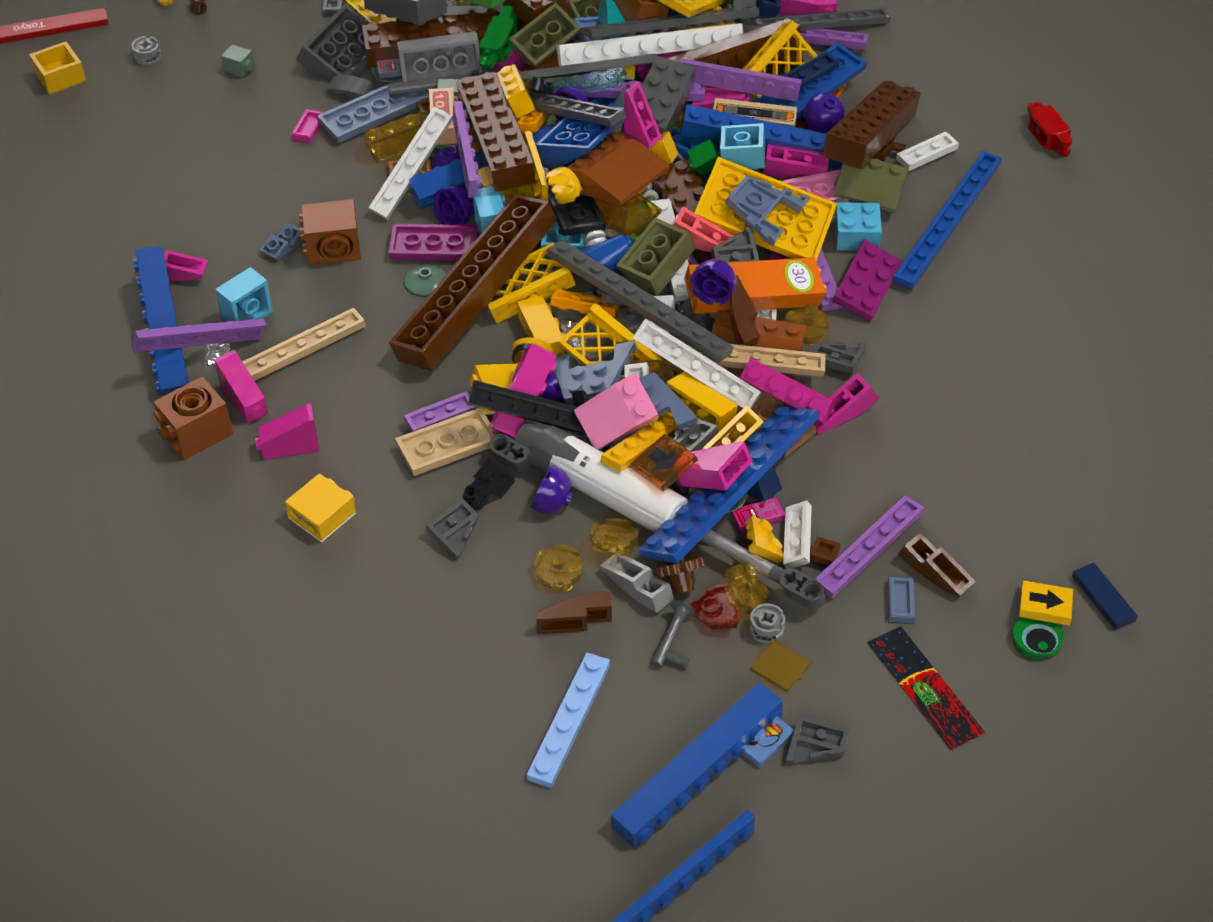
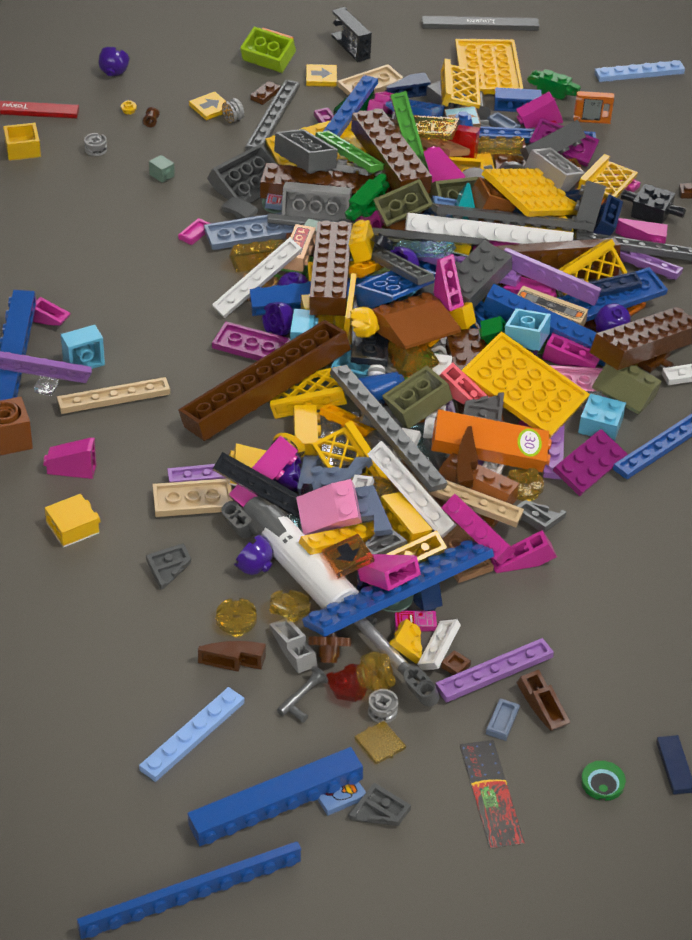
camera: 15 degrees right, 5 degrees down
(240, 387) = (50, 413): dark pink slope -> none
(283, 243) = (137, 314): sand blue slope -> none
(329, 232) = (172, 315): dark orange brick -> none
(423, 279) = (229, 368): sand green dish -> none
(467, 155) = (300, 281): medium lavender plate -> none
(488, 480) = (209, 534): black brick -> none
(713, 281) = (450, 426): dark purple cylinder -> none
(755, 201) = (518, 372): sand blue wing -> none
(1046, 603) = (621, 755): yellow tile -> none

